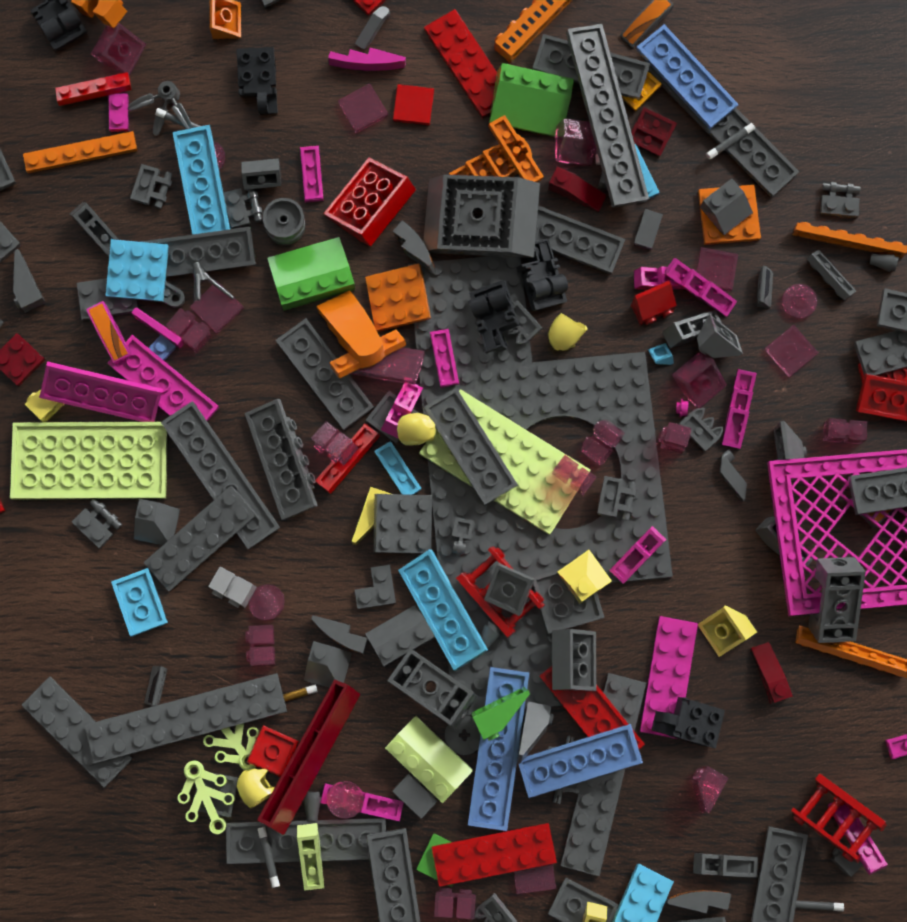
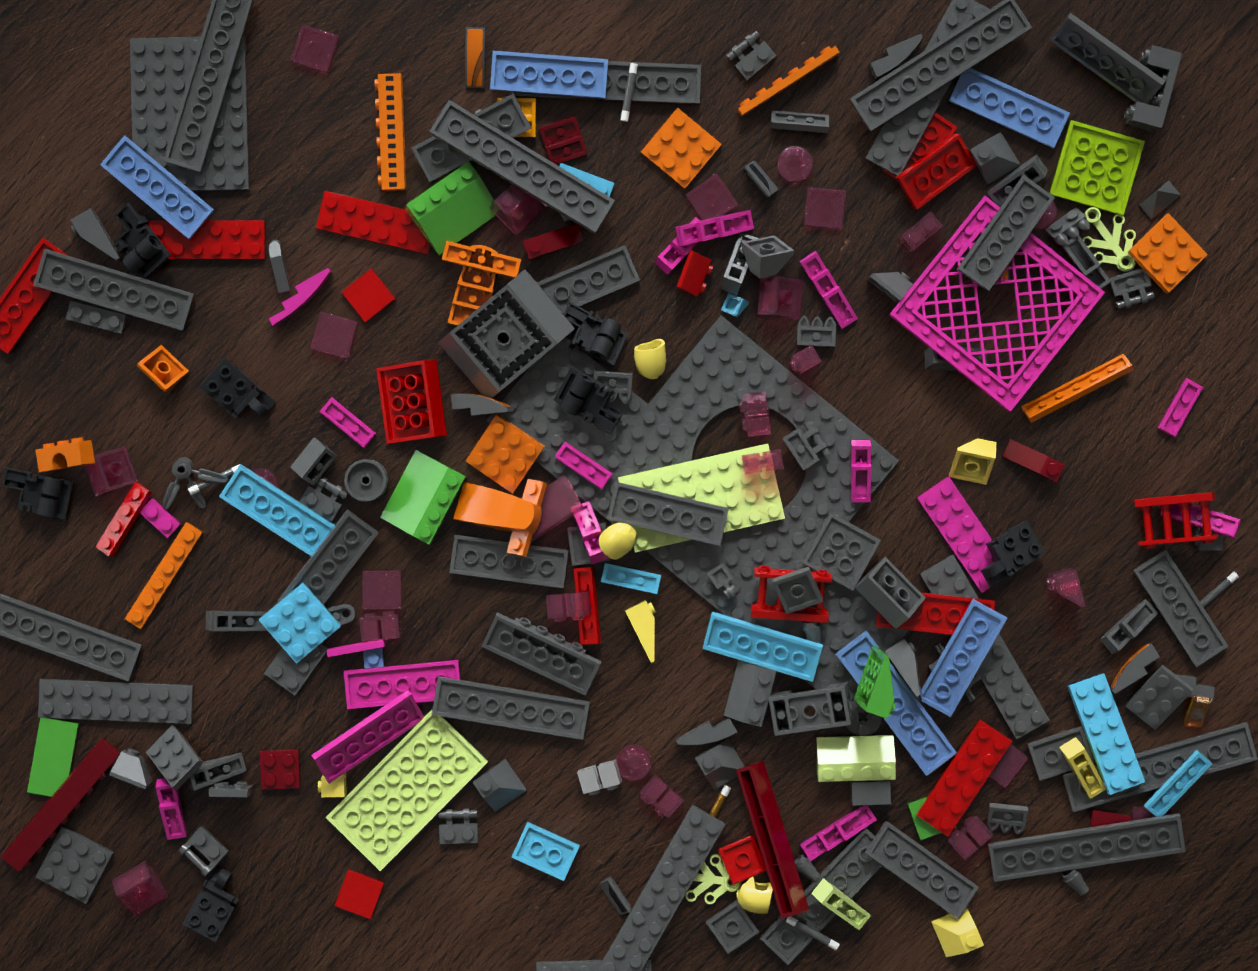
camera: 40 degrees left, 10 degrees up
(24, 286) = (231, 713): dark grey slope -> none
(109, 332) = (326, 687): slope -> none
(145, 185) = (237, 552): dark grey plate -> none
(200, 276) = (348, 582): dark grey plant -> none
(200, 538) = (542, 765): dark grey plate -> none
(204, 794) = (726, 935): yellowish green plant -> none
(345, 799) = (826, 843): clear pink wheel -> none
(381, 593) = (706, 676): dark grey plate -> none
(402, 523) = (673, 614): dark grey plate -> none
(584, 576) = (839, 525): light yellow slope -> none
(648, 229) = (633, 219): dark grey tile -> none
(682, 408) = (788, 330): dark pink plate -> none
(727, 207) = (676, 148): dark grey slope -> none
(731, 476) = (870, 345): dark grey piece -> none
(841, 582) = (1025, 354): dark grey plate -> none
(884, 261) = (828, 72): dark grey cone -> none

